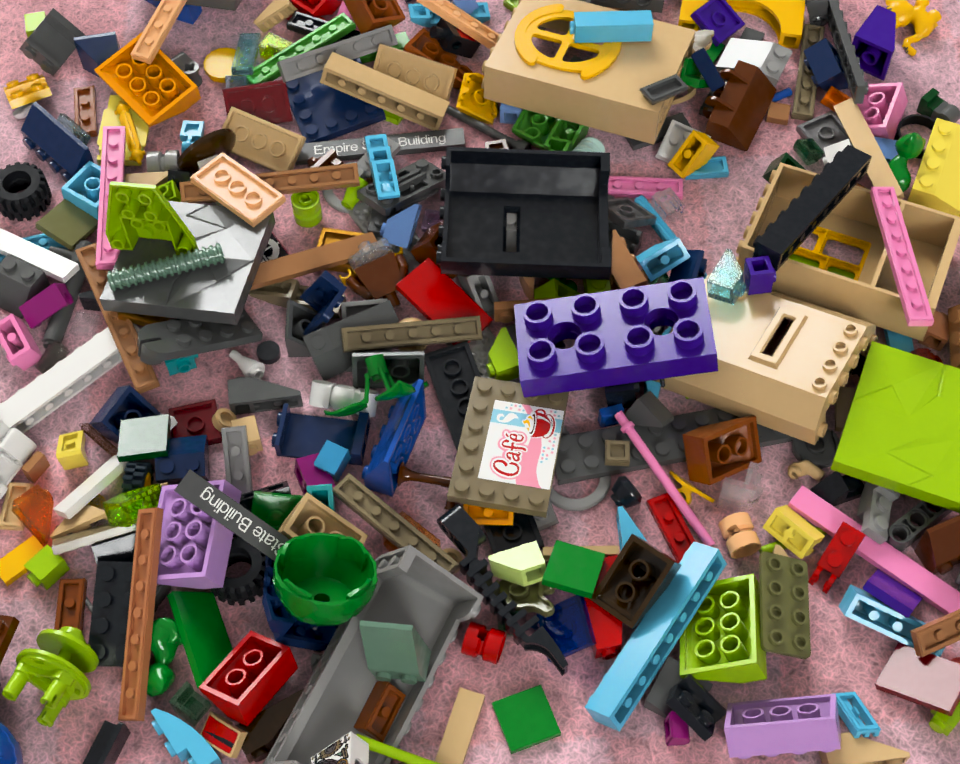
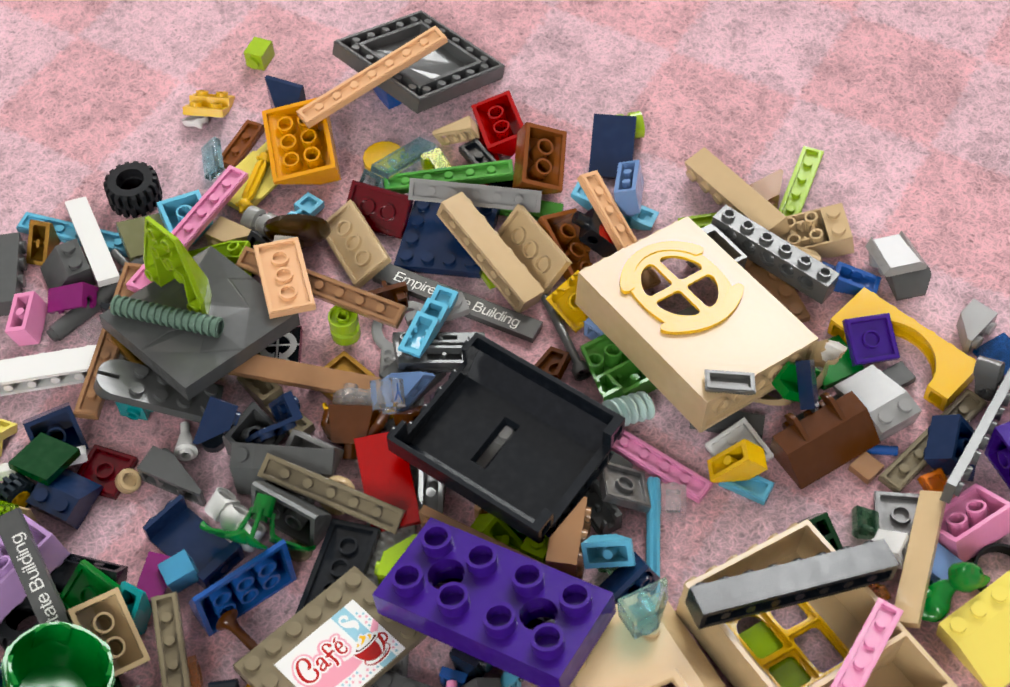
camera: 35 degrees right, 5 degrees down
(51, 42) = (250, 71): dark grey panel -> none
(54, 143) = (188, 159): dark blue slope -> none
(54, 352) = (44, 344): clear smoke cone -> none
(97, 441) = (18, 437): reddish brown piece -> none
(188, 66) = (346, 148): dark grey piece -> none
(237, 457) = (103, 524): light grey tile -> none
(254, 439) = (133, 506): tan brick -> none
(269, 329) = (216, 419): none -> dark blue slope
(350, 198) = (386, 337): lime cone -> none
(398, 237) = (387, 395): none -> clear brick
(612, 26) = (727, 293): medium azure brick -> none
(758, 275) = (675, 623): dark purple brick -> none

